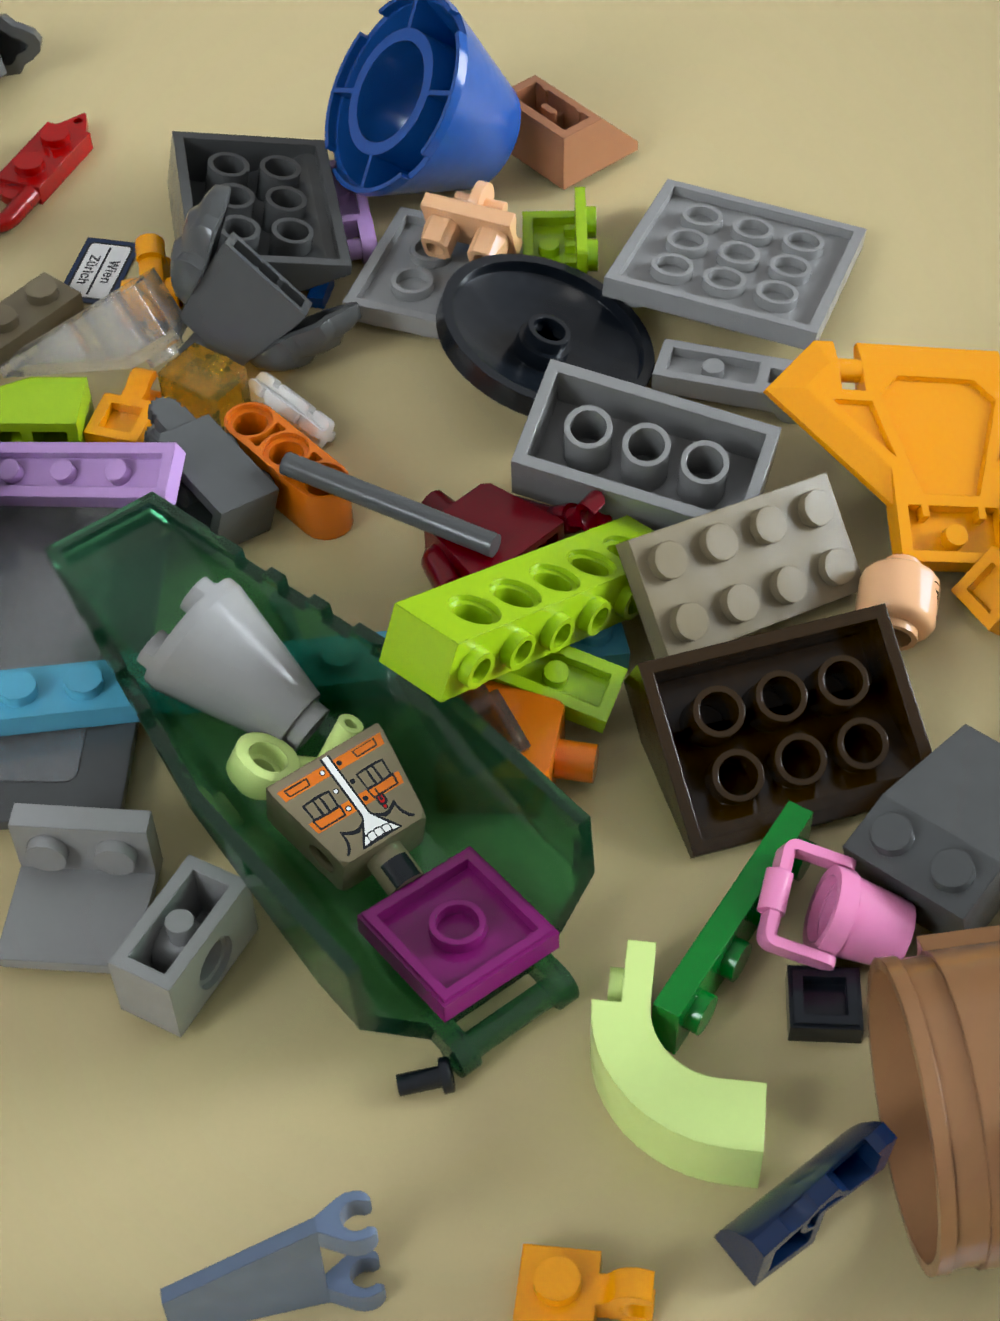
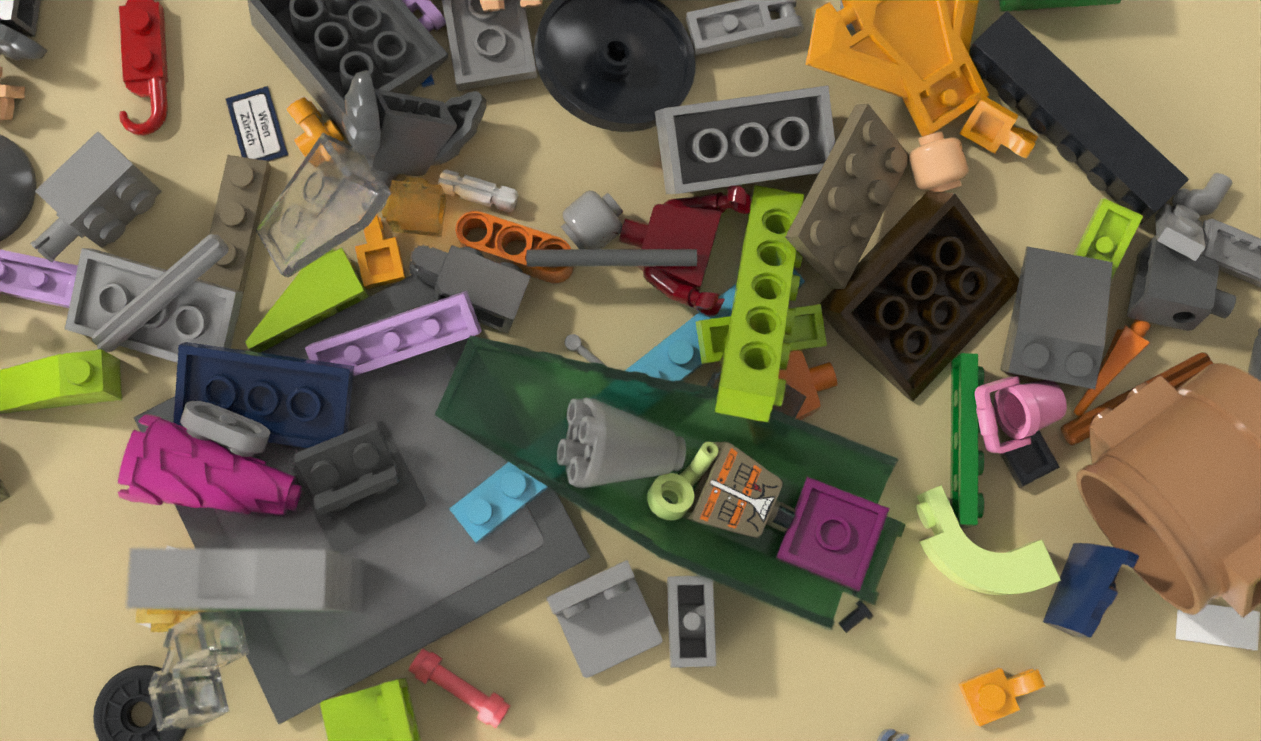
camera: 30 degrees left, 30 degrees up
(402, 470) = (592, 220): none -> light grey head

